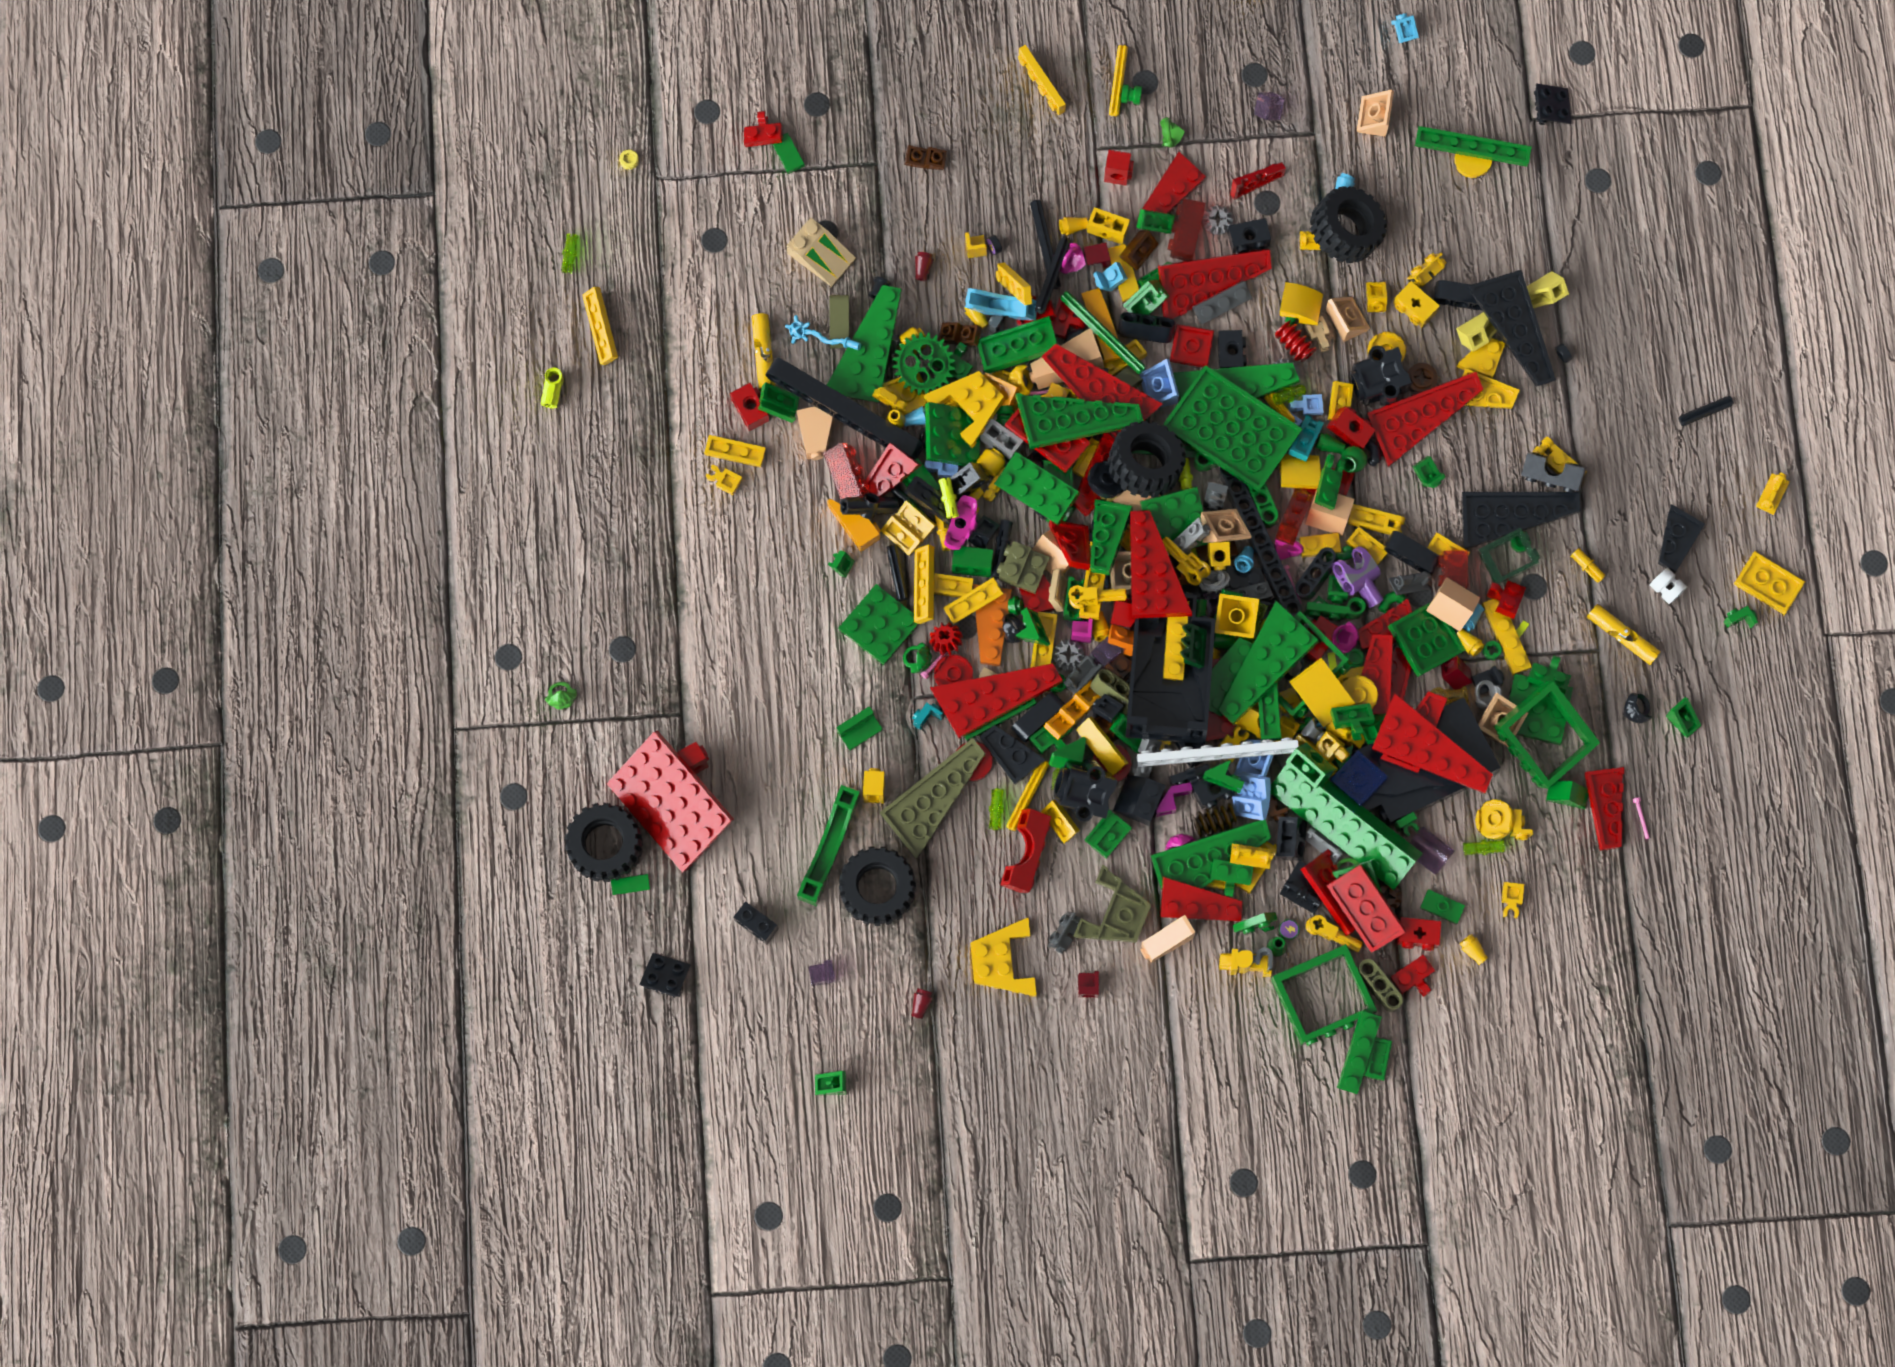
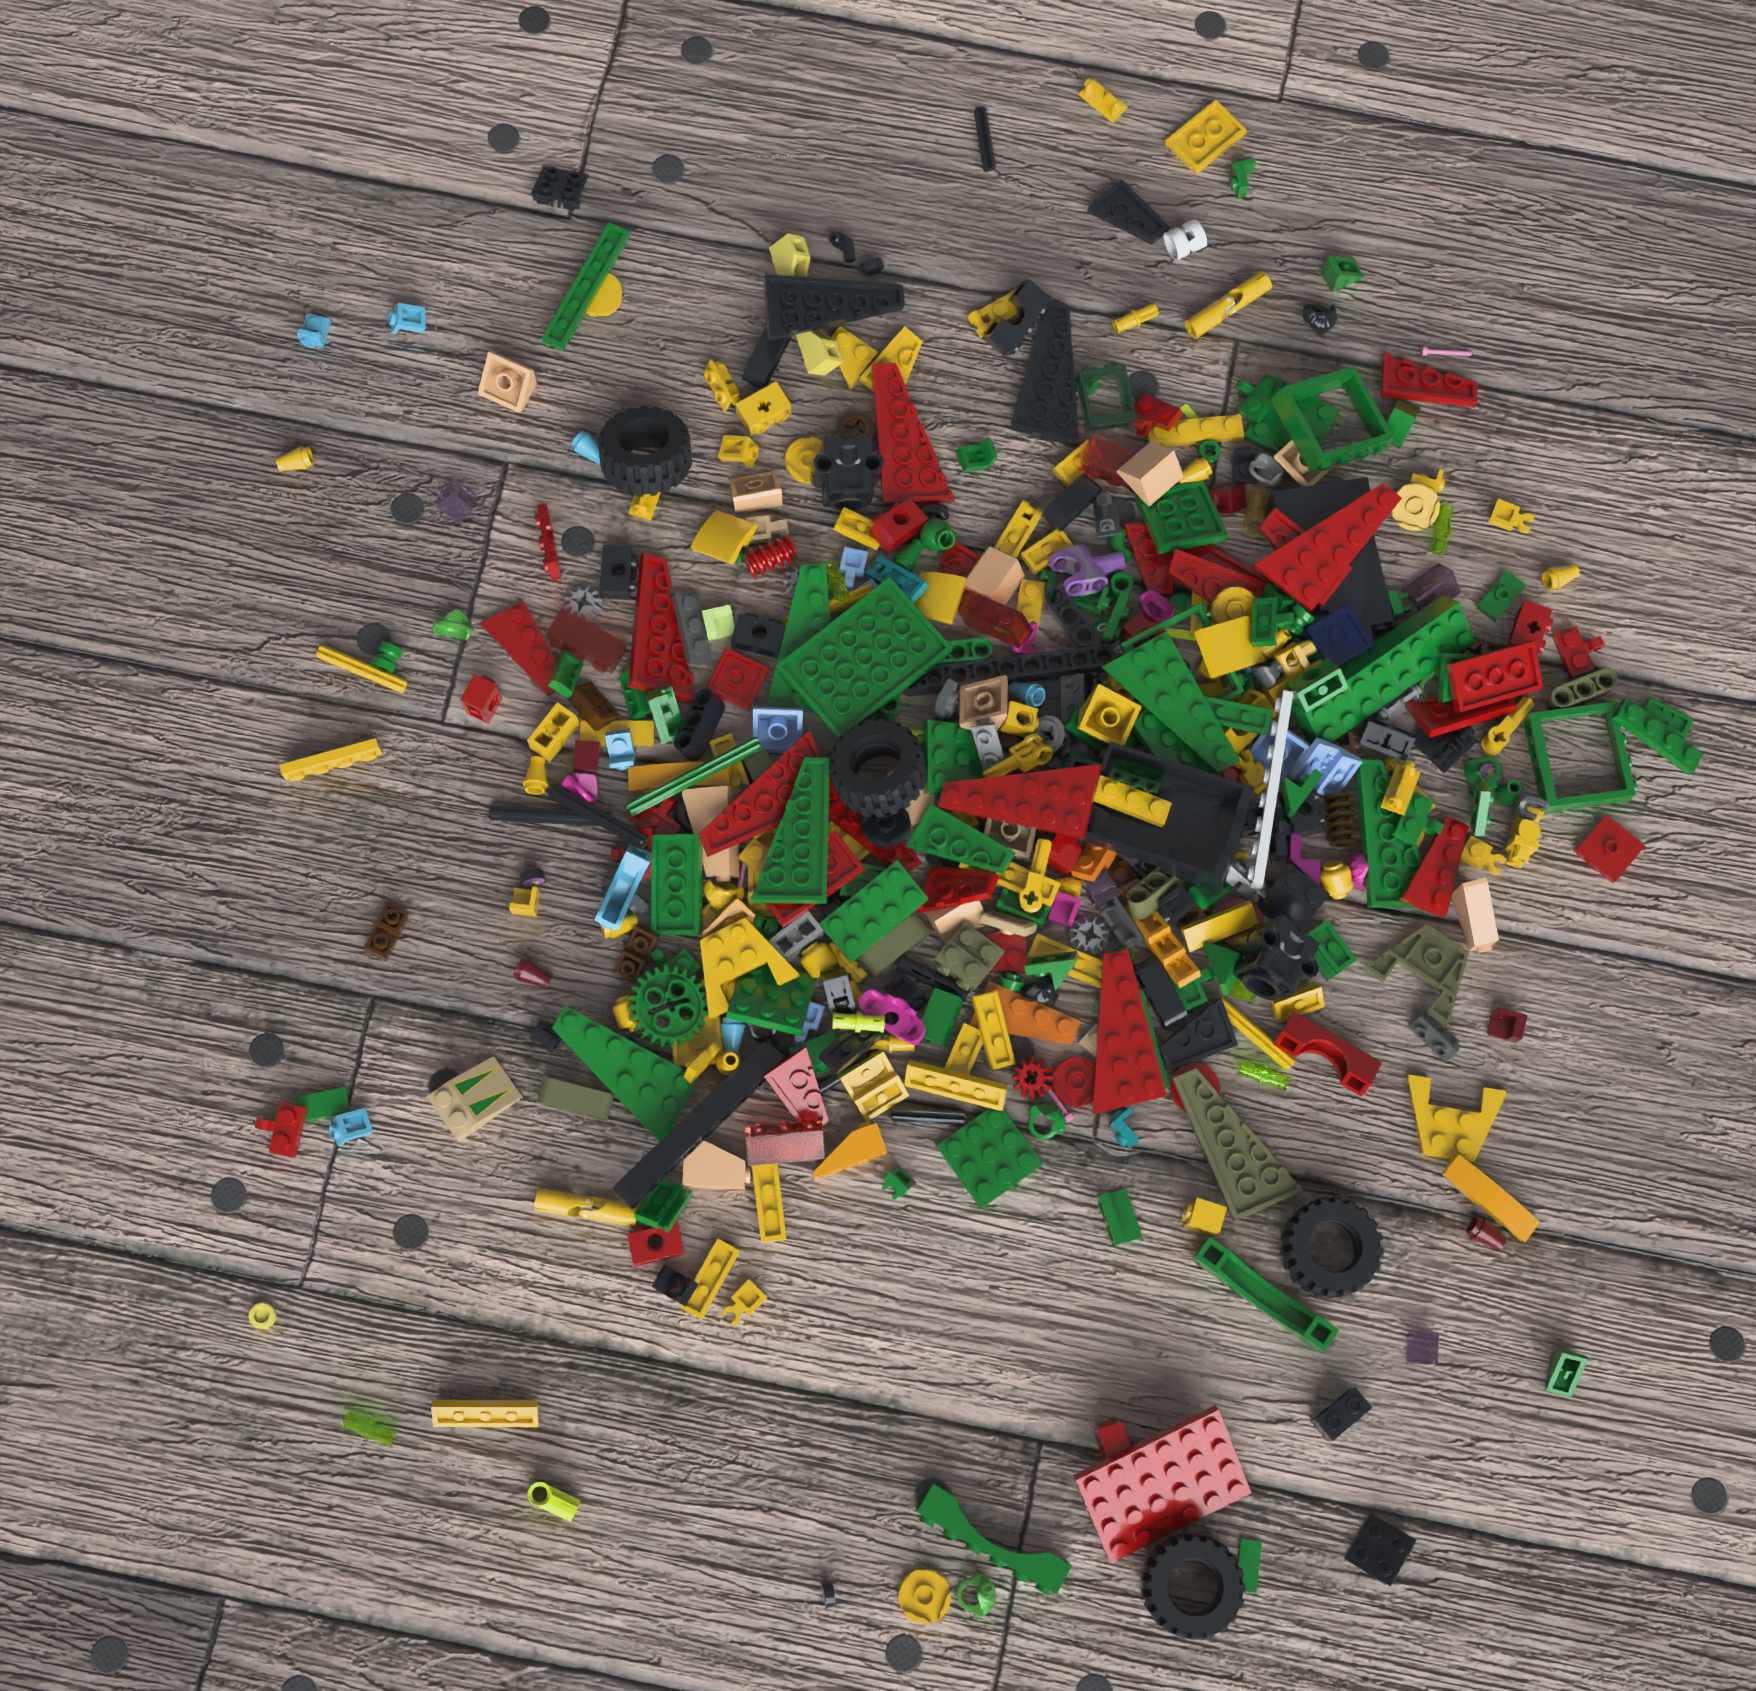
camera: 80 degrees left, 0 degrees up
(535, 591) = (828, 1593): none -> black tile
(551, 660) = (924, 1596): none -> yellow tile
(613, 657) = (1040, 1567): none -> green arch
(724, 426) = (674, 1285): none -> black bracket
(777, 175) = (350, 1126): none -> medium azure bracket
(799, 330) = (571, 1153): medium azure piece -> none
(801, 477) = (769, 1203): none -> yellow plate
(868, 505) = (837, 1125): black piece -> none
(949, 999) = (1490, 1197): none -> light orange slope
(1014, 283) = (601, 863): yellow plate -> none
(1019, 514) = (895, 945): none -> olive beam
(1165, 827) = (1336, 879): none -> yellow head
(1221, 935) = (1478, 854): none -> yellow plate
(1232, 318) = (718, 622): none -> yellowish green panel
(1256, 1036) = (1609, 849): none -> red plate
(1279, 928) = (1473, 774): none -> green piece
(1329, 483) = (965, 565): green hinge -> none
(1365, 744) = (1302, 618): none -> green wheel
(1577, 327) = (844, 244): none -> black arm

